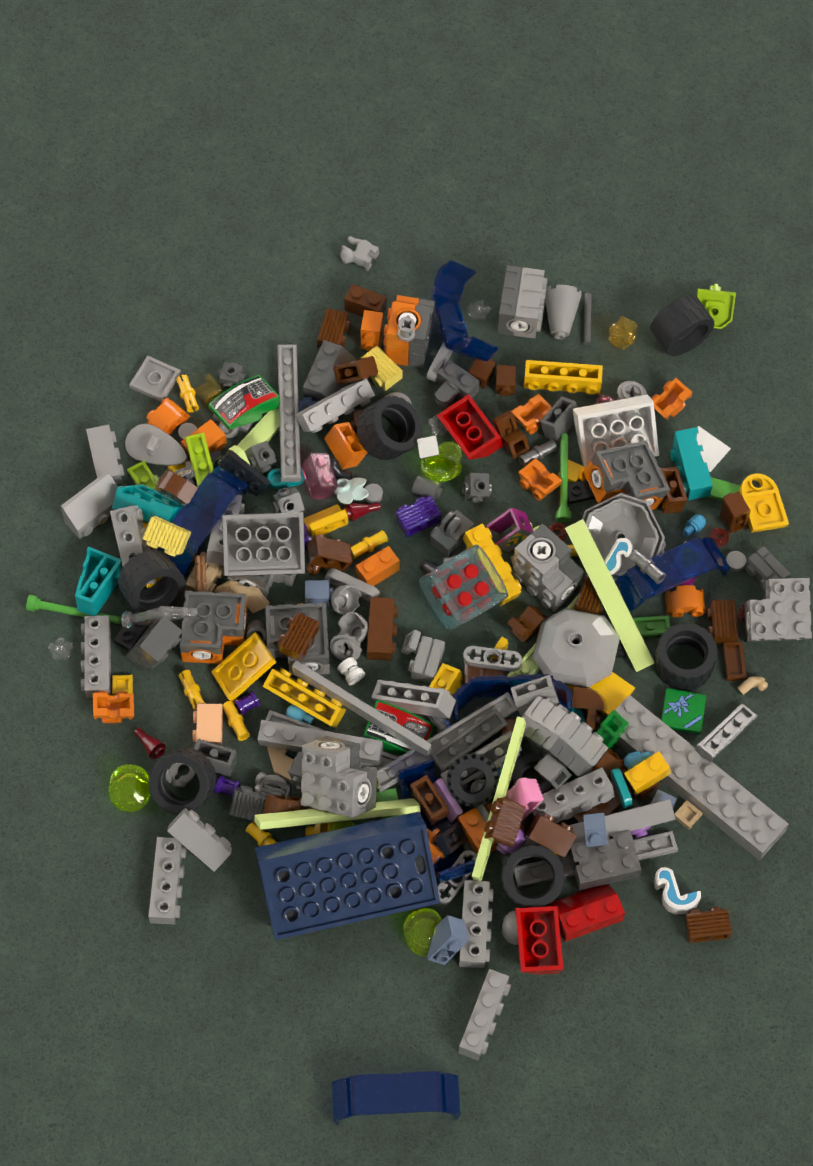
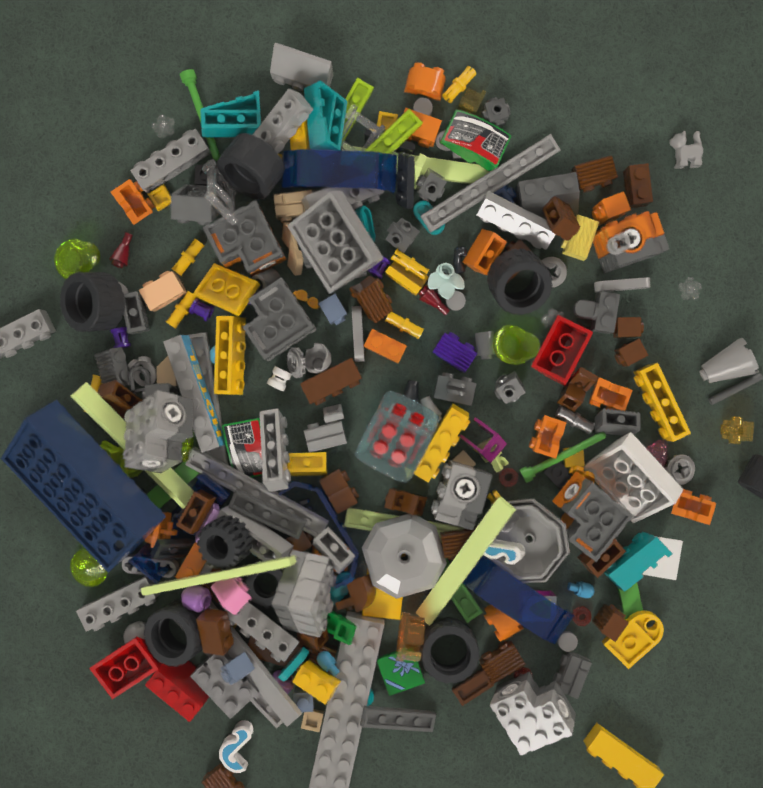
camera: 65 degrees right, 25 degrees up
(104, 453) = (357, 50): light grey brick -> none
(154, 446) = (391, 87): light grey shield -> none
(155, 379) = (458, 47): light grey tile -> none
(166, 535) = (294, 152): light yellow brick -> none
(176, 487) = (346, 132): reddish brown brick -> none
(200, 573) = (287, 202): medium nougat axle -> none
(200, 839) = (53, 345): light grey brick -> none
(299, 636) = (263, 325): reddish brown brick -> none
(318, 510) = (409, 264): none -> yellow pin
(319, 475) = (442, 246): clear pink brick -> none
(345, 599) = (339, 336): light grey hair -> none
(362, 709) = (238, 412): light grey tile -> none
(427, 446) = (521, 325): white tile -> none
(447, 295) = (682, 254): clear blue windscreen -> none
(447, 939) = (87, 593): sand blue slope -> none
(483, 1015) = (49, 651): light grey brick -> none
(488, 651) = (351, 509): light grey beam -> none
(502, 644) = (369, 490): yellow tile -> none
(504, 822) = (193, 596): reddish brown brick -> none
(522, 302) = (715, 328): light grey piece -> none
(552, 771) = (264, 605): dark grey brick -> none
(647, 566) = (506, 584): flat silver pin -> none
(652, 683) = (410, 637): none -> clear orange panel
(754, 681) = (457, 711): tan arm -> none

